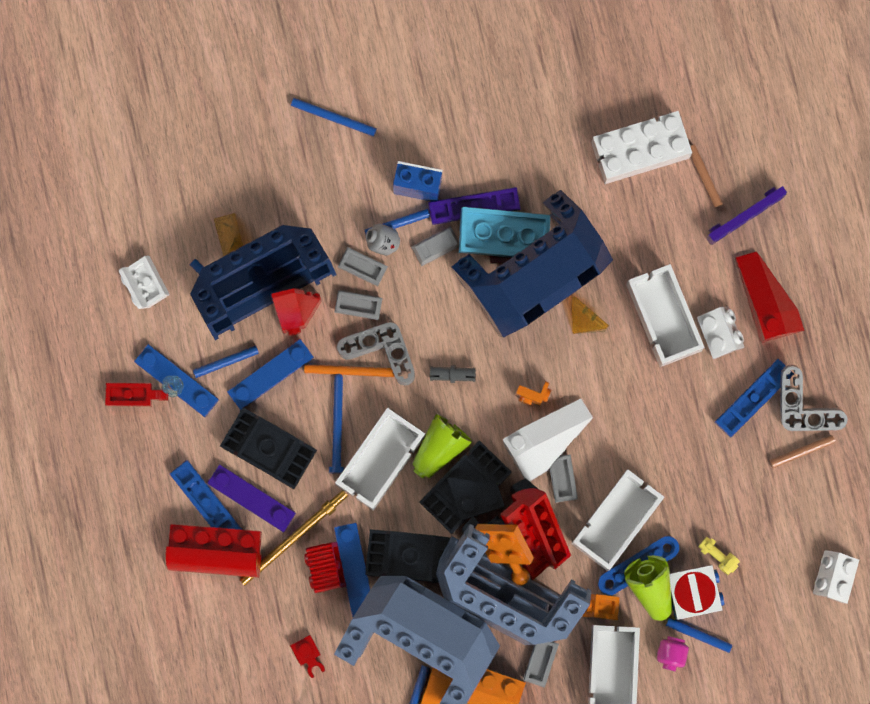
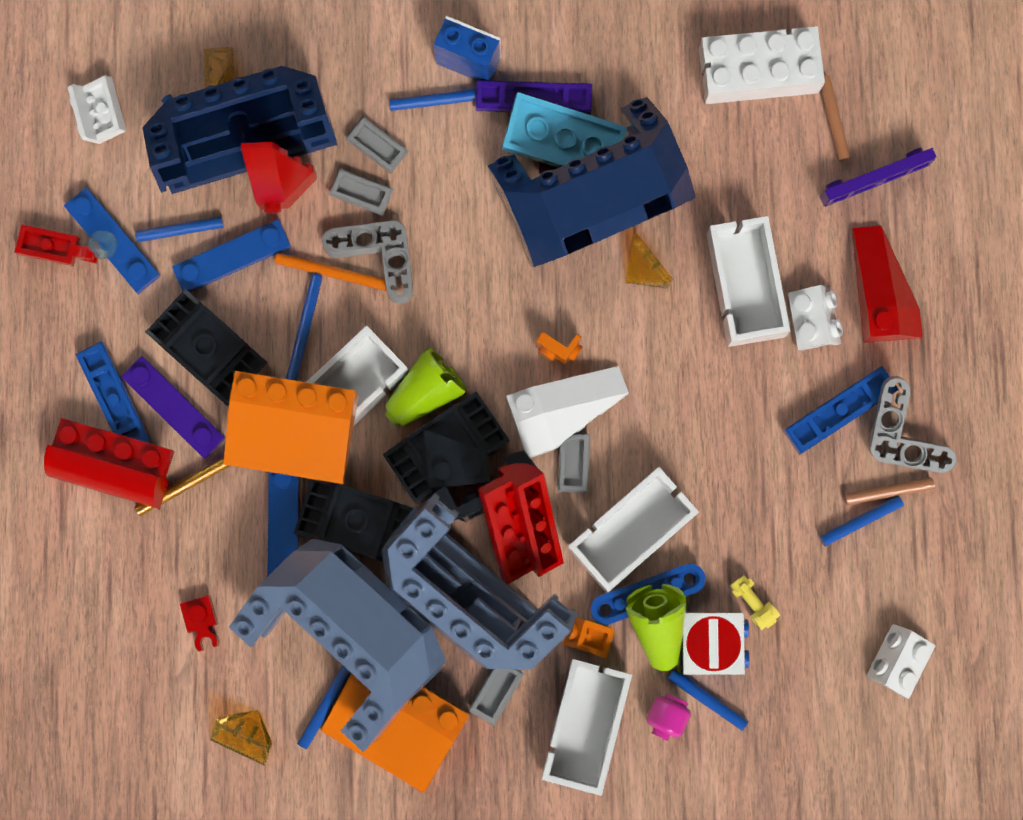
camera: 15 degrees right, 0 degrees up
(325, 567) = (245, 513): red brick -> none
(347, 496) = (289, 427): none -> orange slope
(382, 239) = (408, 115): light grey head -> none
(435, 246) = (474, 138): light grey tile -> none
(452, 374) = (461, 302): dark grey pin -> none
(508, 547) = (480, 533): orange plate -> none
(784, 479) = (861, 521): none -> blue bar

